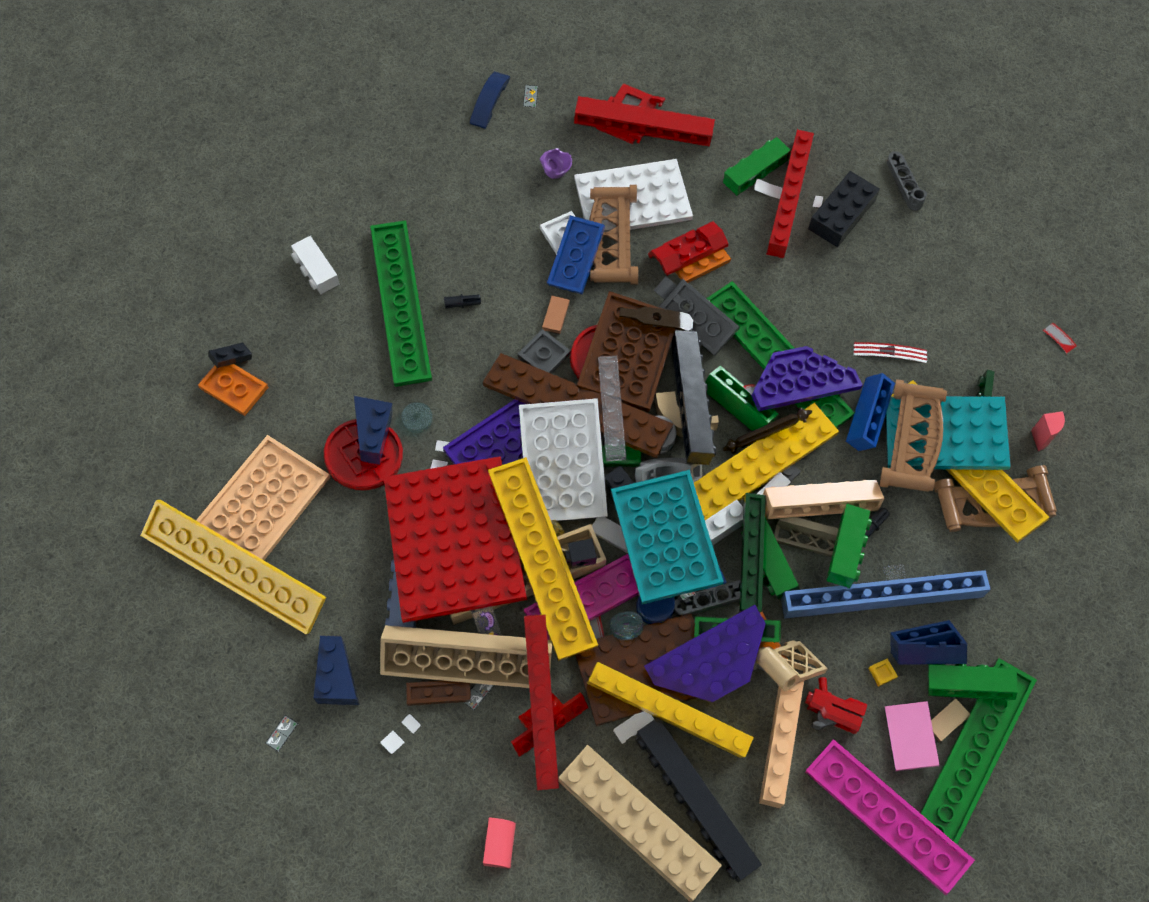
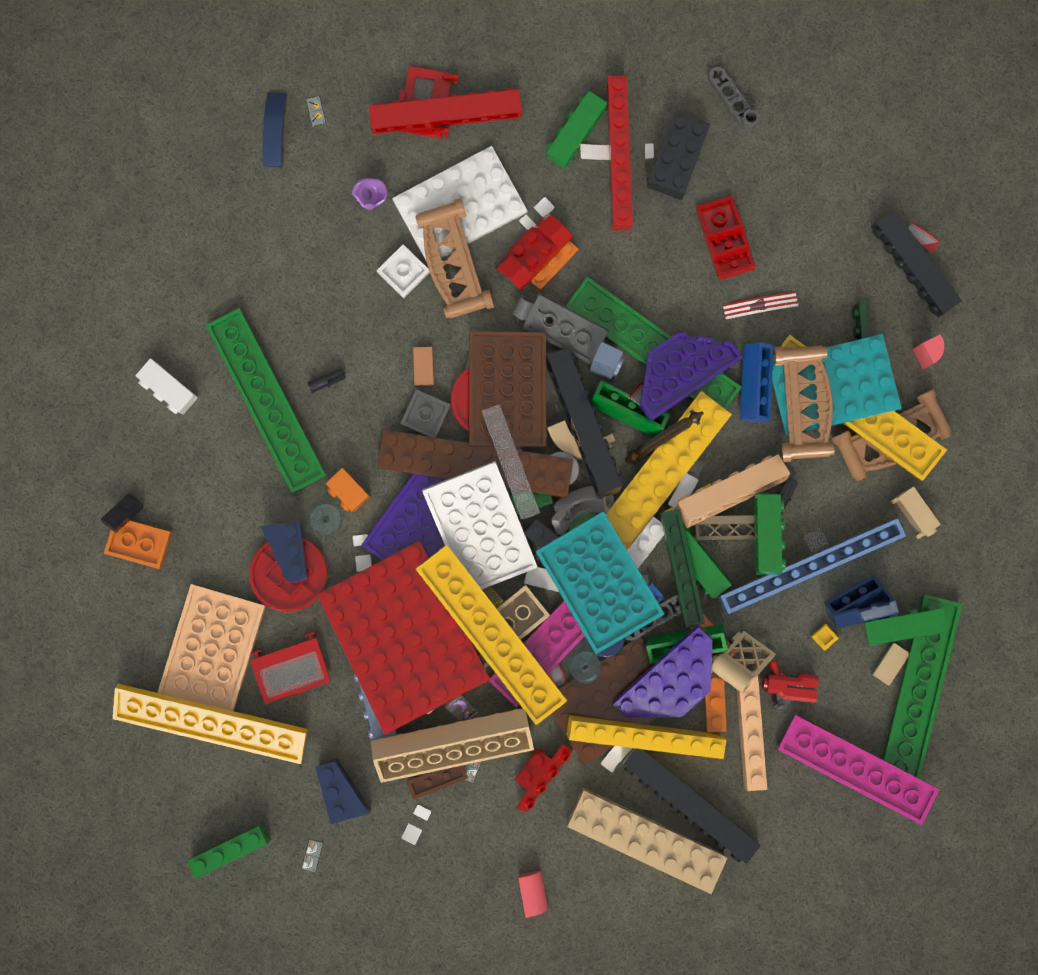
camera: 15 degrees left, 20 degrees up
(199, 696) = (228, 850): none -> green brick
(331, 541) = (290, 670): none -> piece
(448, 397) = (347, 490): none -> orange brick
(541, 702) = (531, 767): red plate -> none
(576, 254) = (424, 297): blue plate -> none
(581, 553) = (526, 621): black brick -> none
(667, 318) = (536, 344): dark brown piece -> none
(707, 218) = (543, 207): none -> white sticker
(730, 344) = (606, 362): none -> sand blue brick
(751, 704) = (715, 706): none -> orange plate
(871, 286) = (725, 237): none -> red slope
(911, 736) = (862, 689): bright pink tile -> none
(1006, 576) = (917, 512): none -> tan brick
(1050, 355) = (915, 263): none -> black brick

